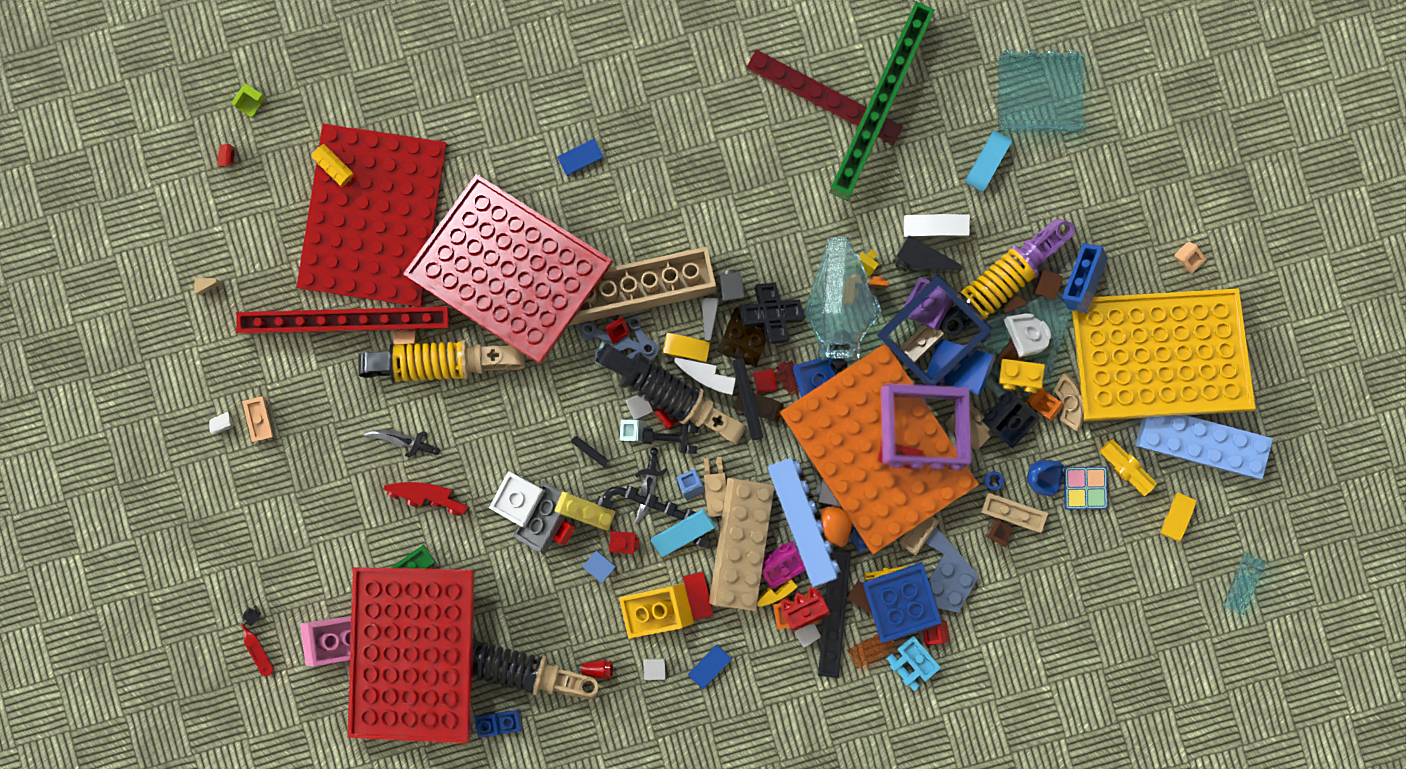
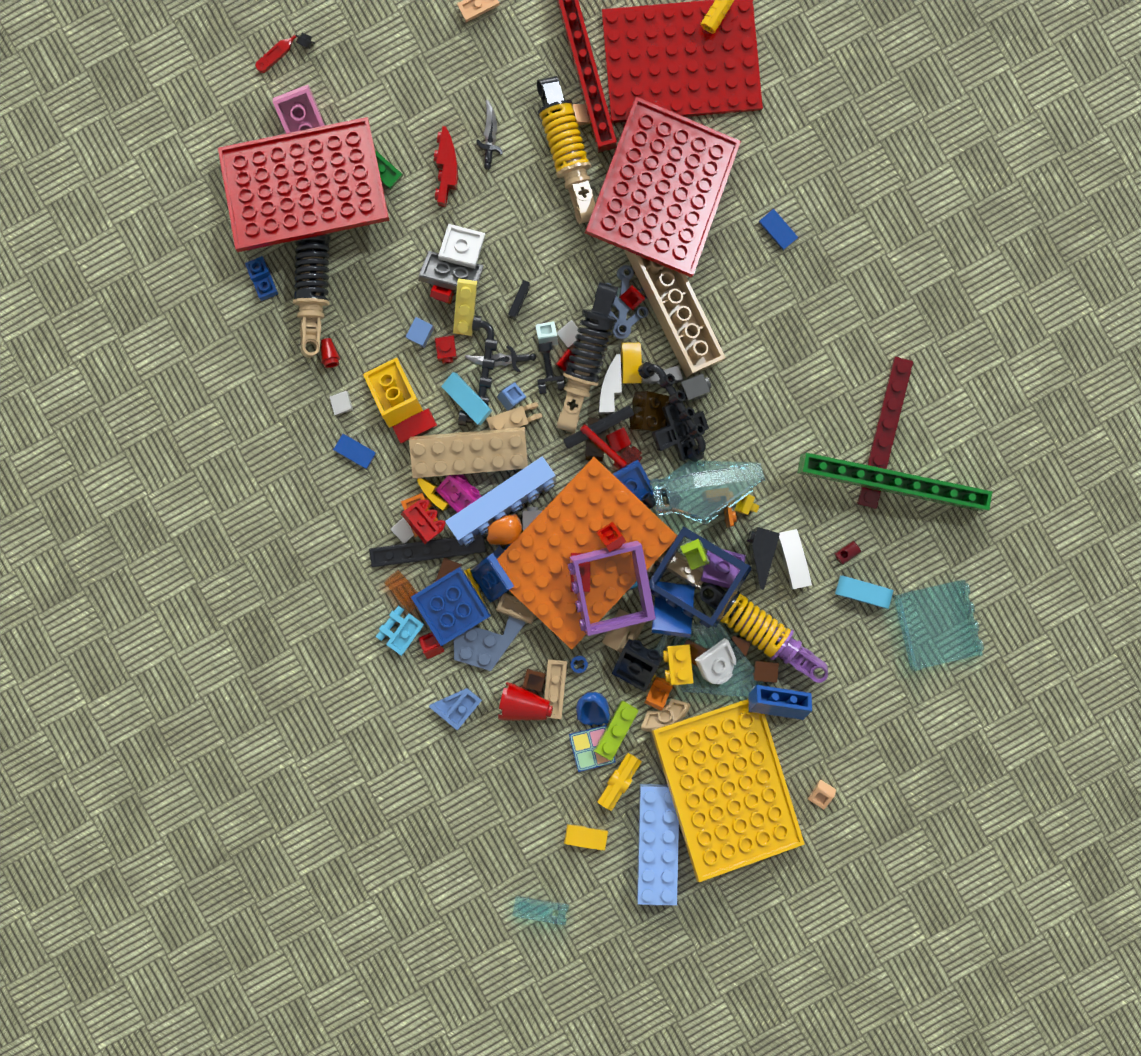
camera: 80 degrees right, 0 degrees up
(769, 399) = (603, 446): none -> red bar
(799, 304) = (676, 398): none -> black bar
(872, 414) = (611, 537): none -> red plate
(883, 551) = (491, 578): none -> blue tile
(911, 329) = (695, 554): none -> lime panel
(942, 168) = (847, 552): none -> dark red piece
(1009, 621) = (456, 707): none -> medium blue wing
(1025, 549) = (523, 705): none -> red cone
(1073, 458) = (616, 730): none -> lime plate

